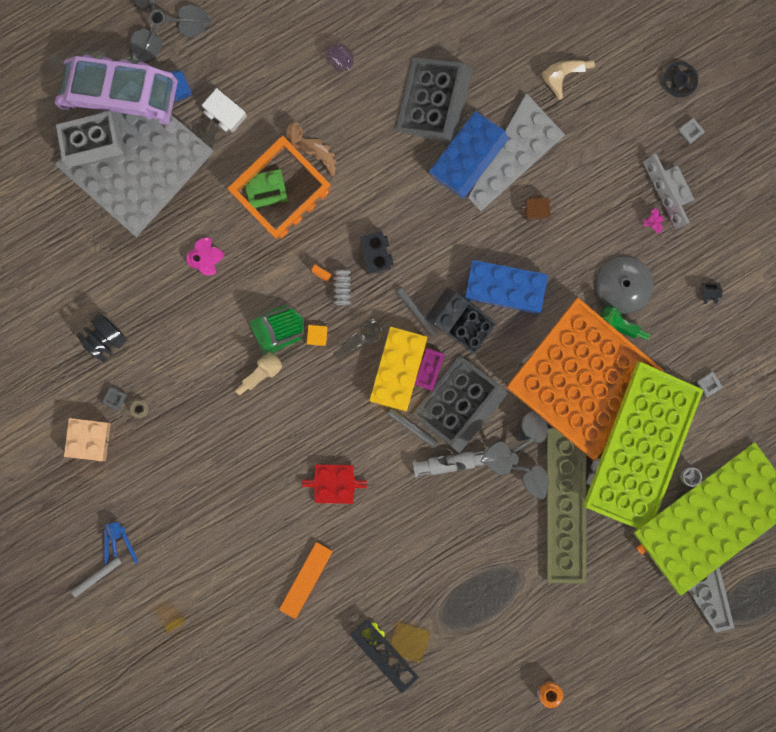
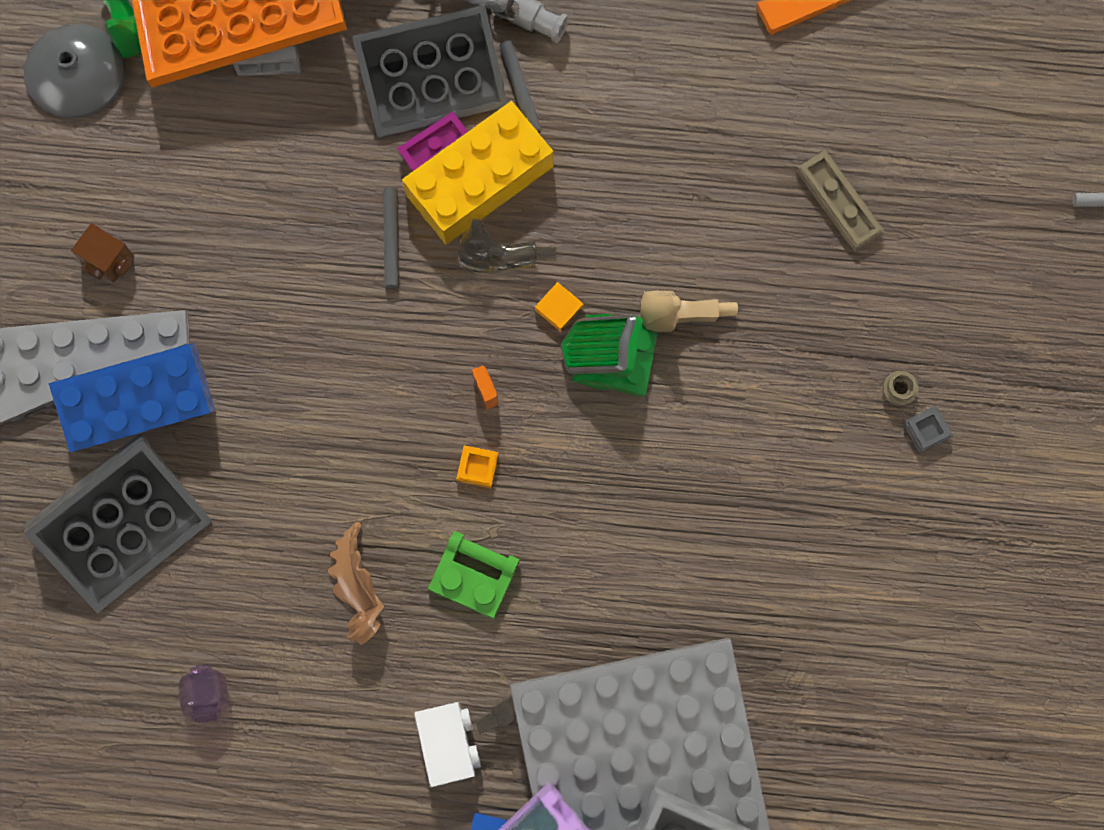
camera: 145 degrees left, 10 degrees down
(87, 439) = (1012, 394): light nougat brick -> none
(101, 337) = (889, 524): black wheel -> none
(112, 532) = (1059, 241): blue plant -> none
(175, 624) = (1053, 56): clear yellow tile -> none
(207, 256) = (636, 539): dark pink plate -> none
(226, 480) = (839, 200): none -> dark tan tile
(257, 166) = (460, 611): orange window -> none
(299, 237) = (477, 466): none -> light orange tile
(334, 483) = (688, 89): red plate -> none
(342, 287) = (470, 346): light grey piece -> none
(371, 254) = (391, 360): black brick -> none
(460, 320) = (338, 181): black slope -> none
(506, 287) = (236, 176): blue brick -> none

